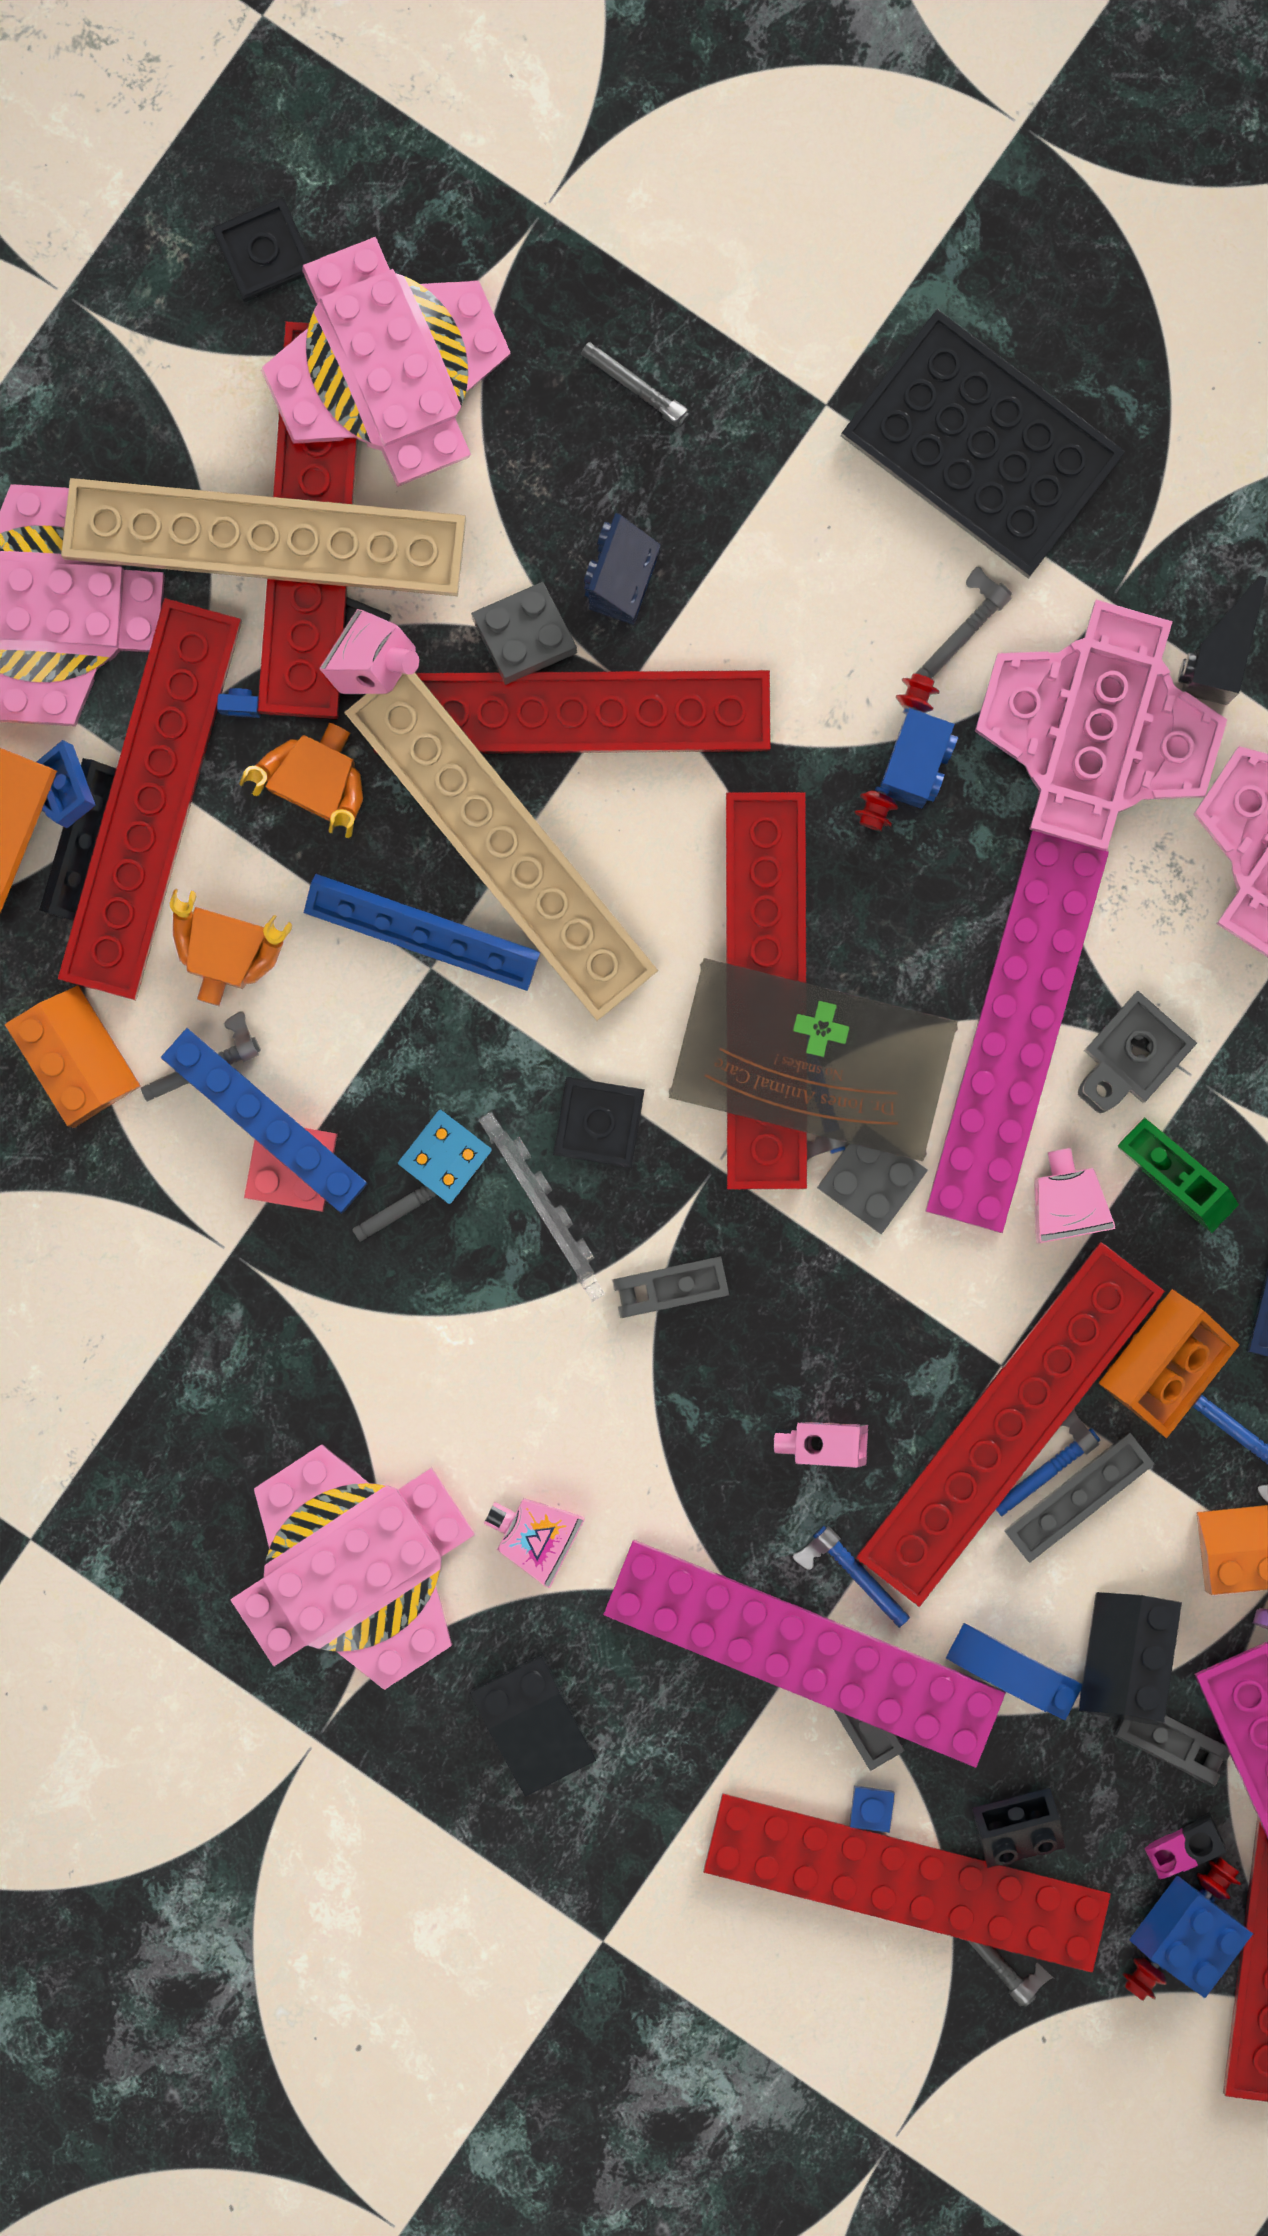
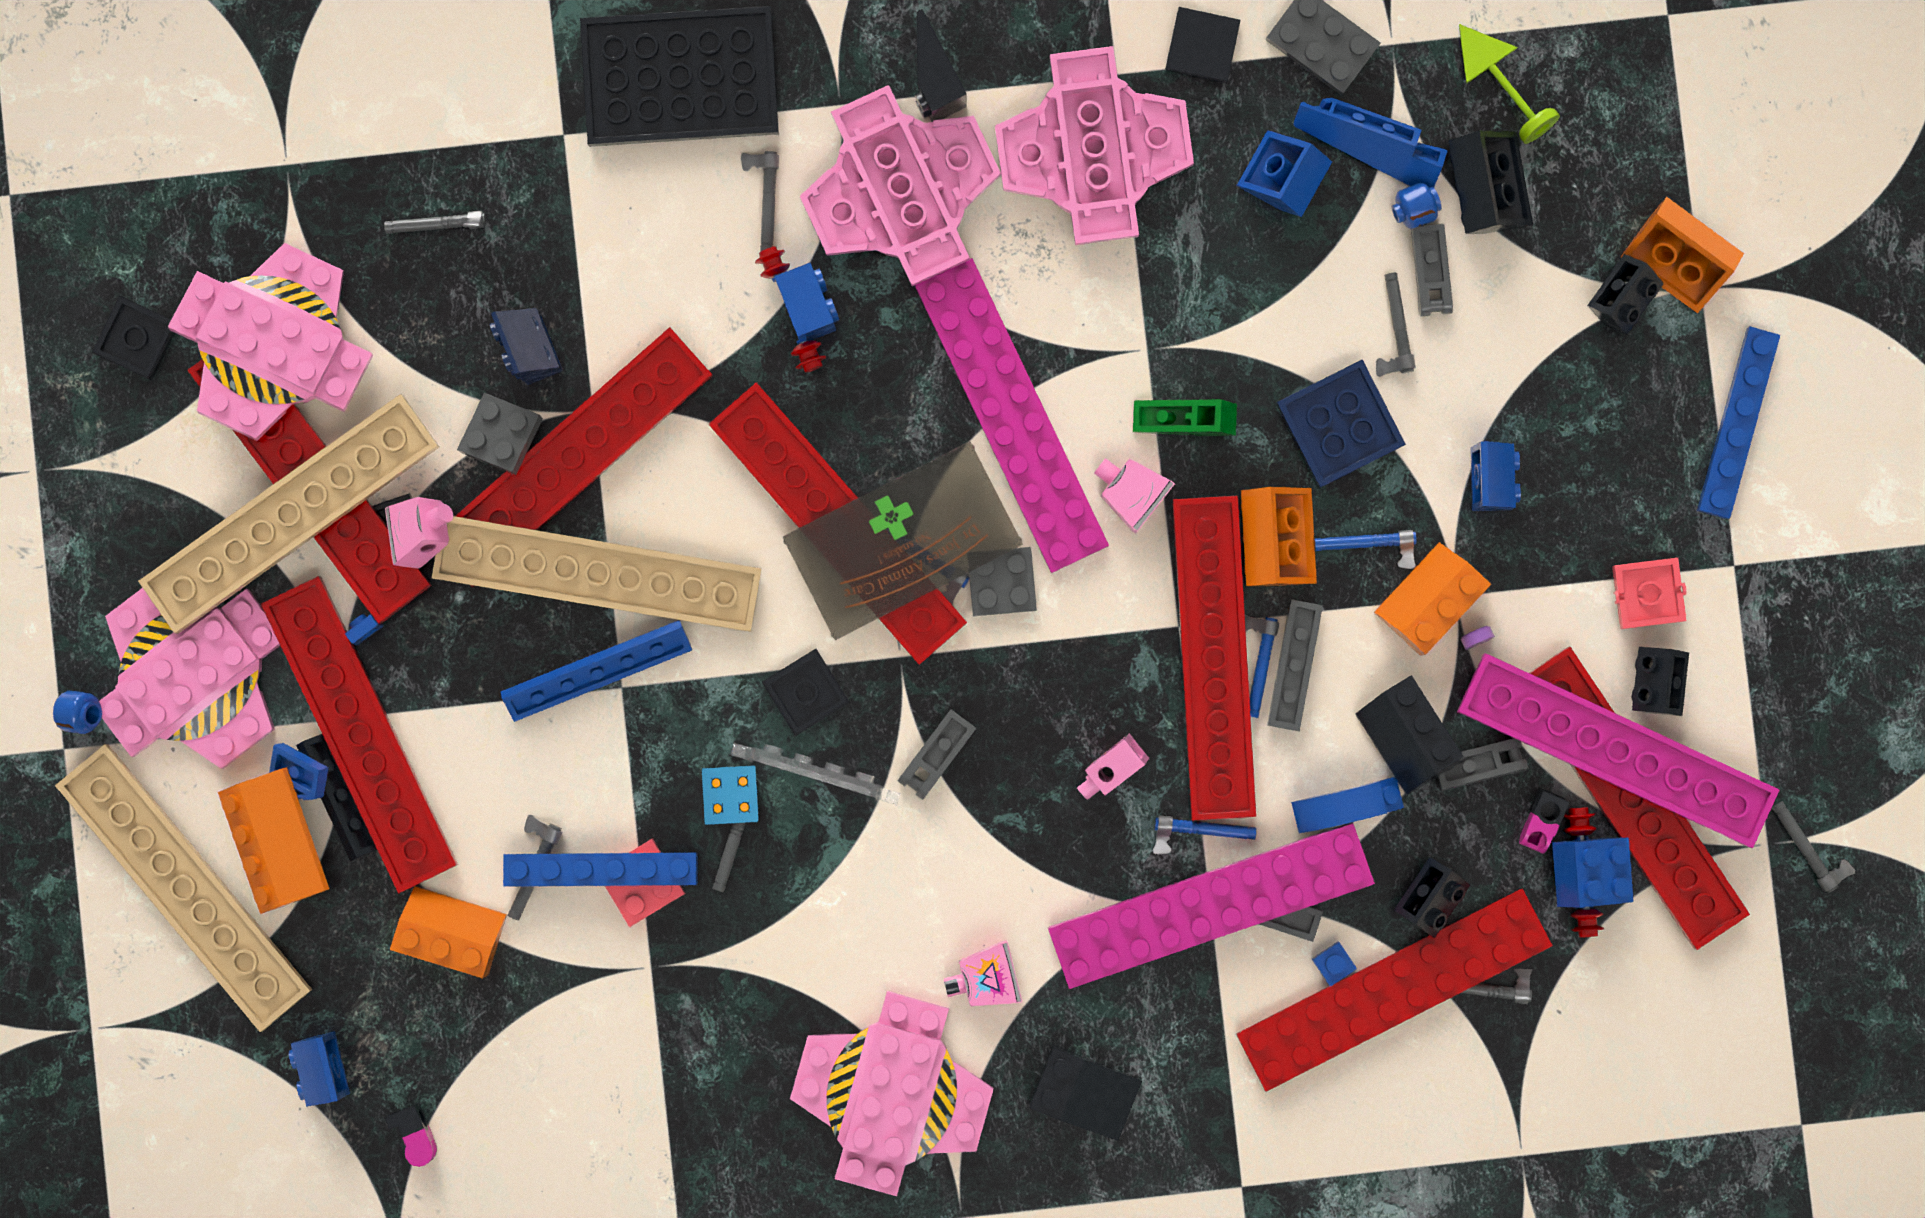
camera: 40 degrees left, 0 degrees up
(223, 947) = (483, 786): orange torso -> none
(313, 777) = (447, 634): orange torso -> none
(1119, 1068) = (1098, 383): dark grey plate -> none

